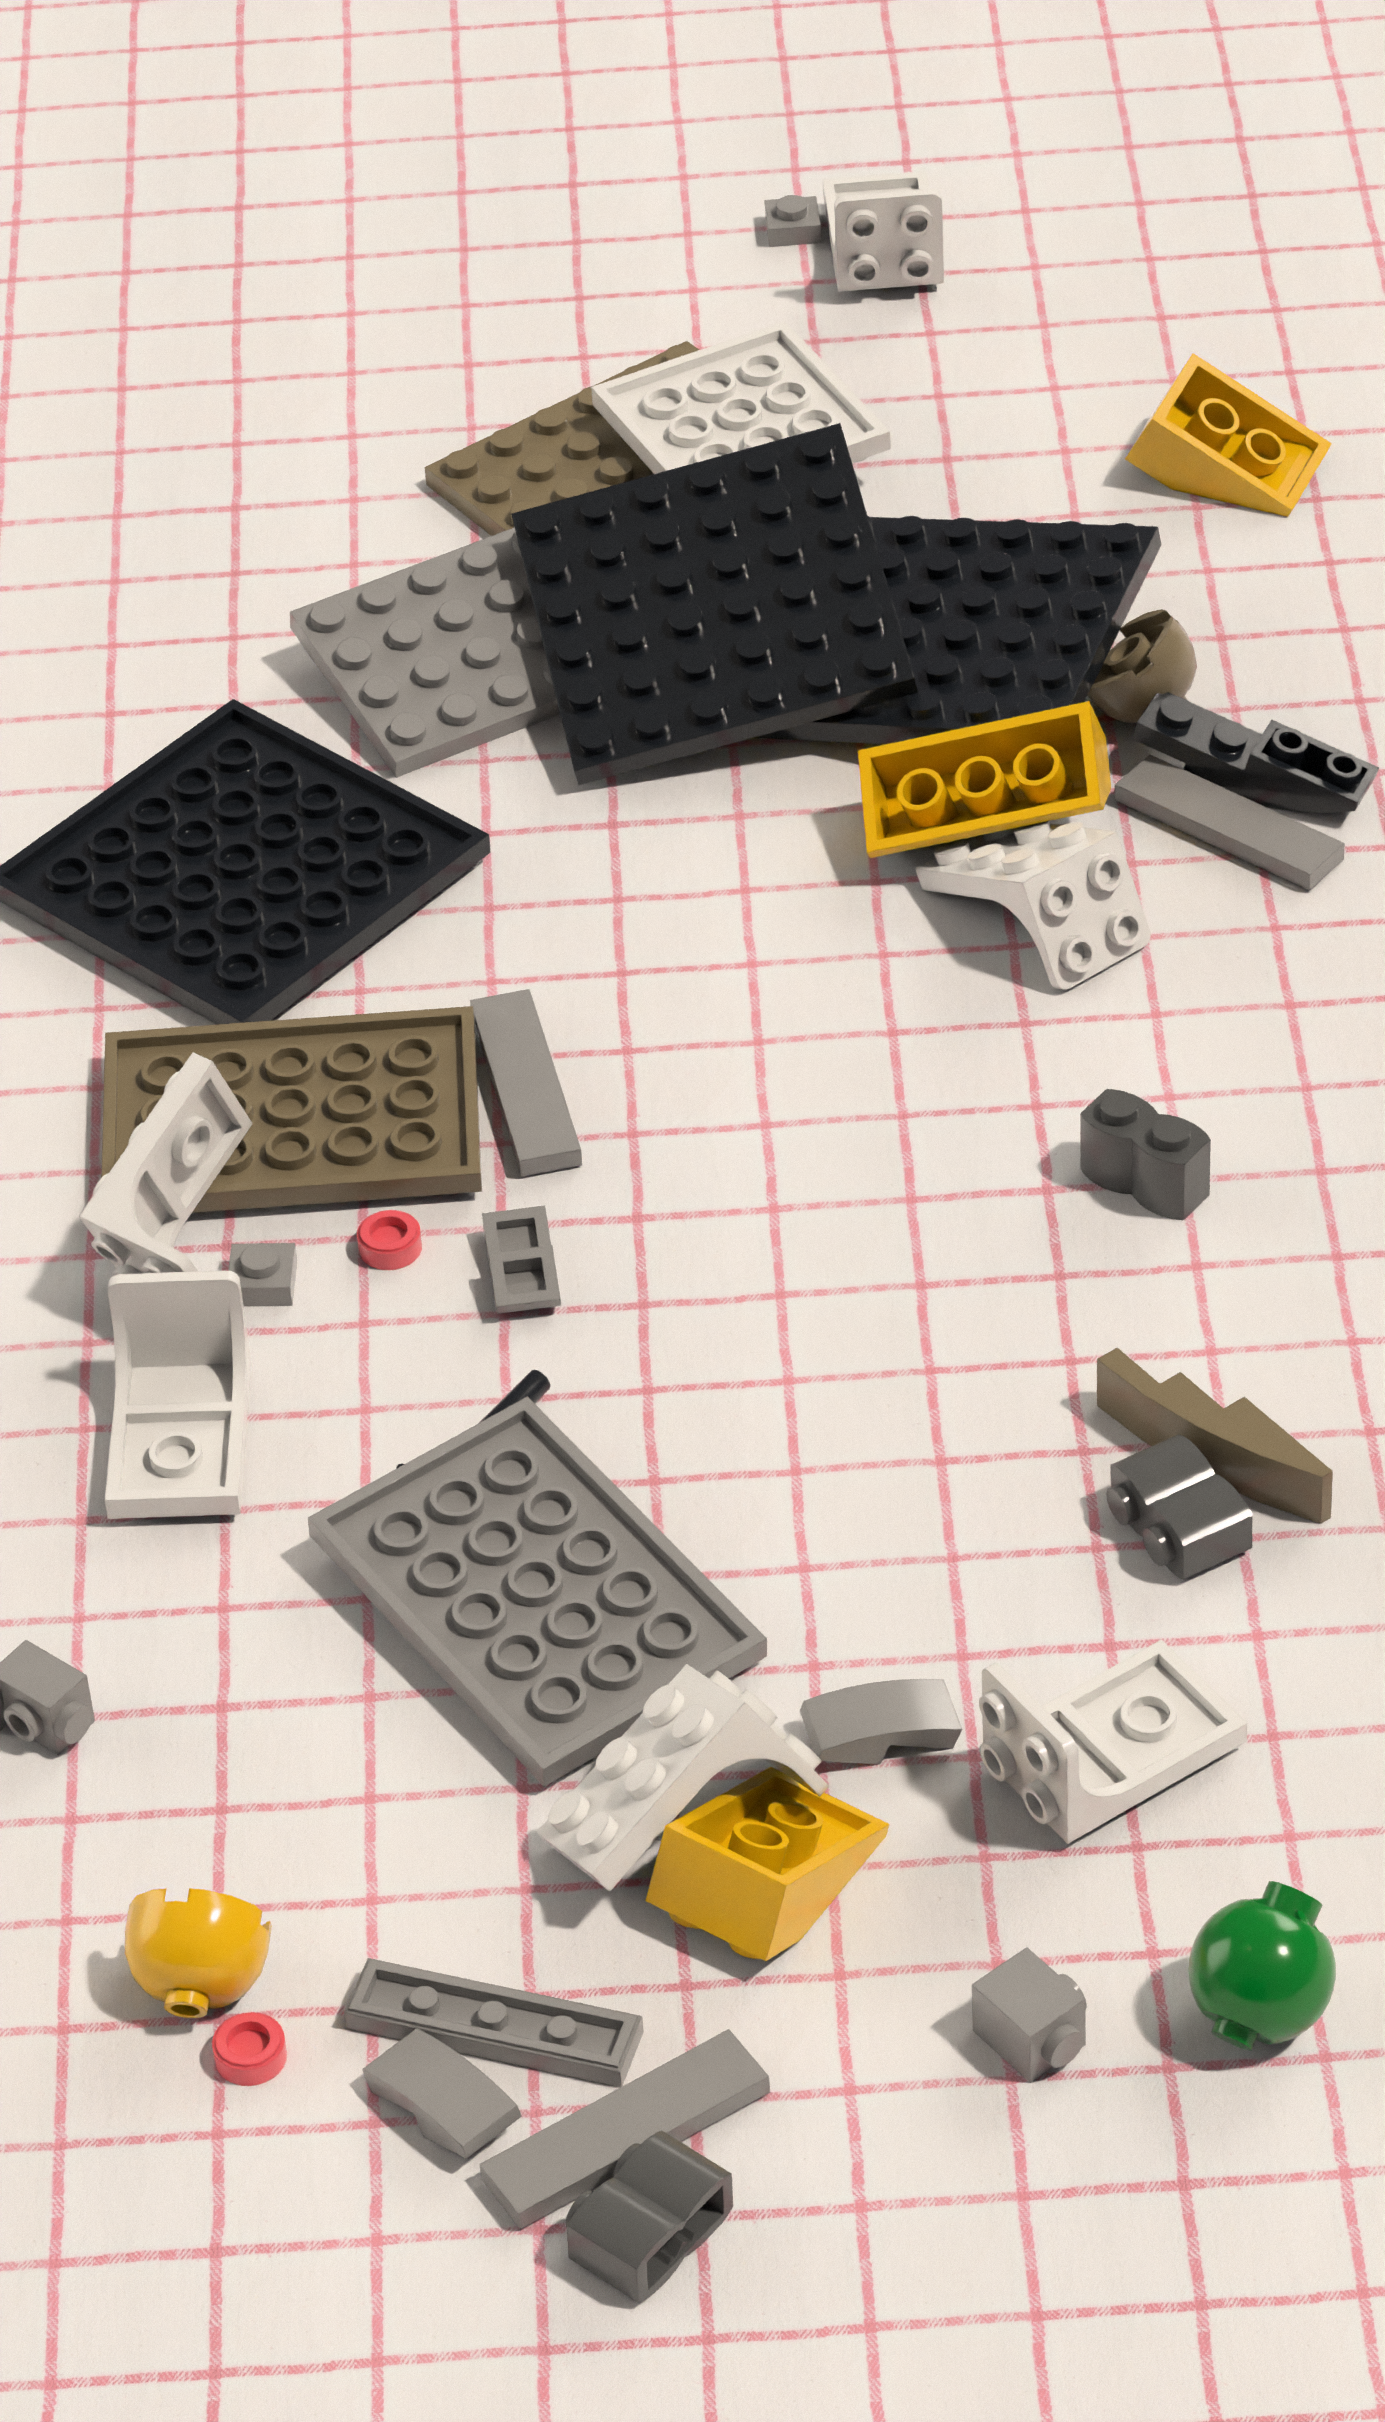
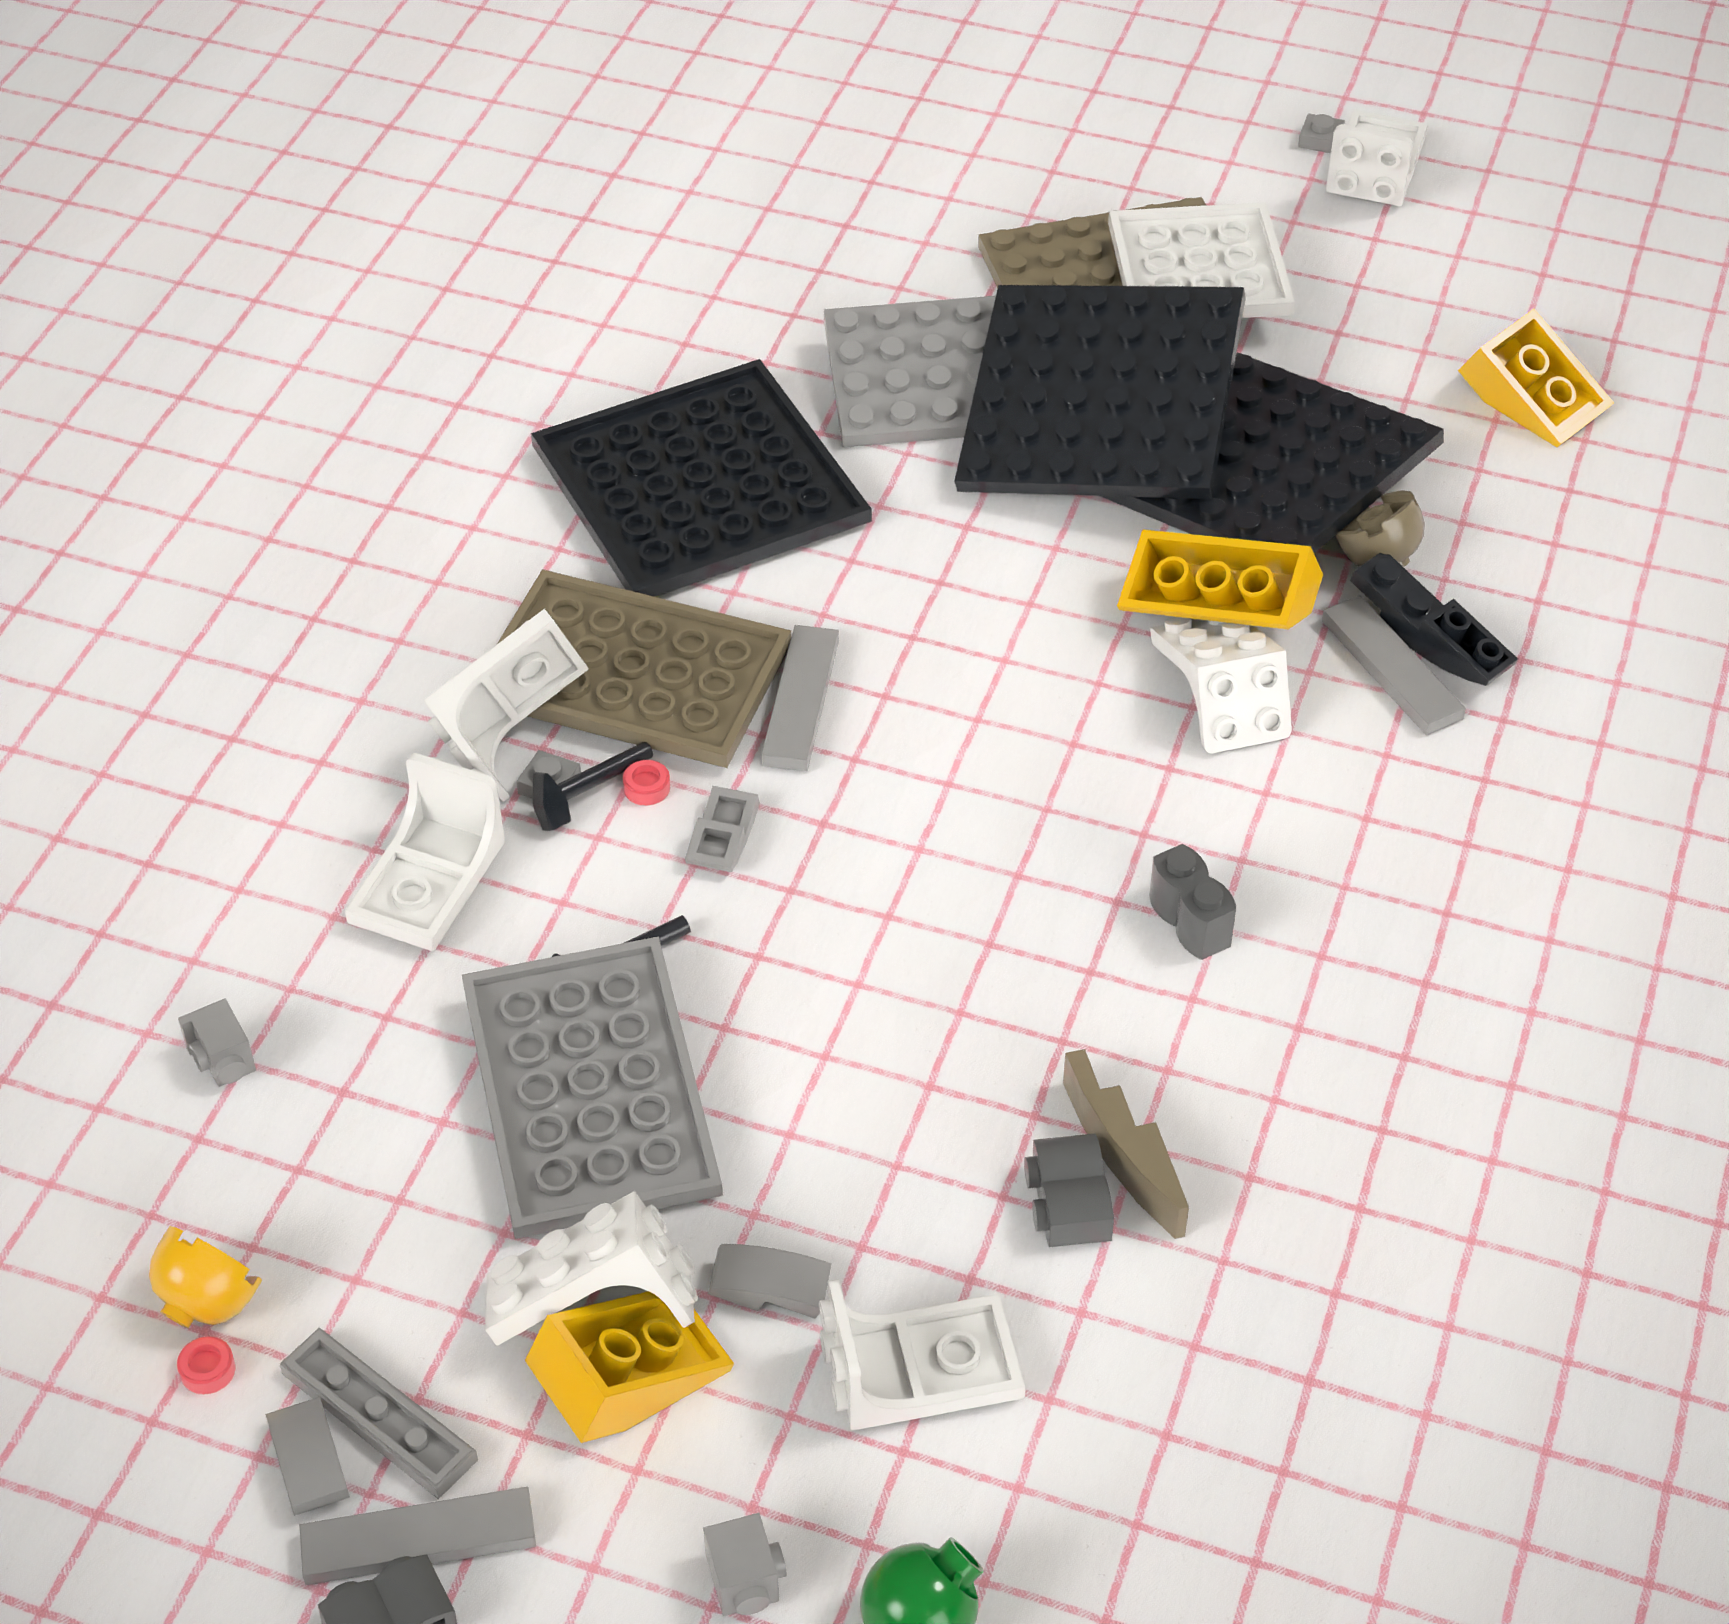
camera: 20 degrees right, 5 degrees up
(288, 1287) = (551, 798): none -> black piece

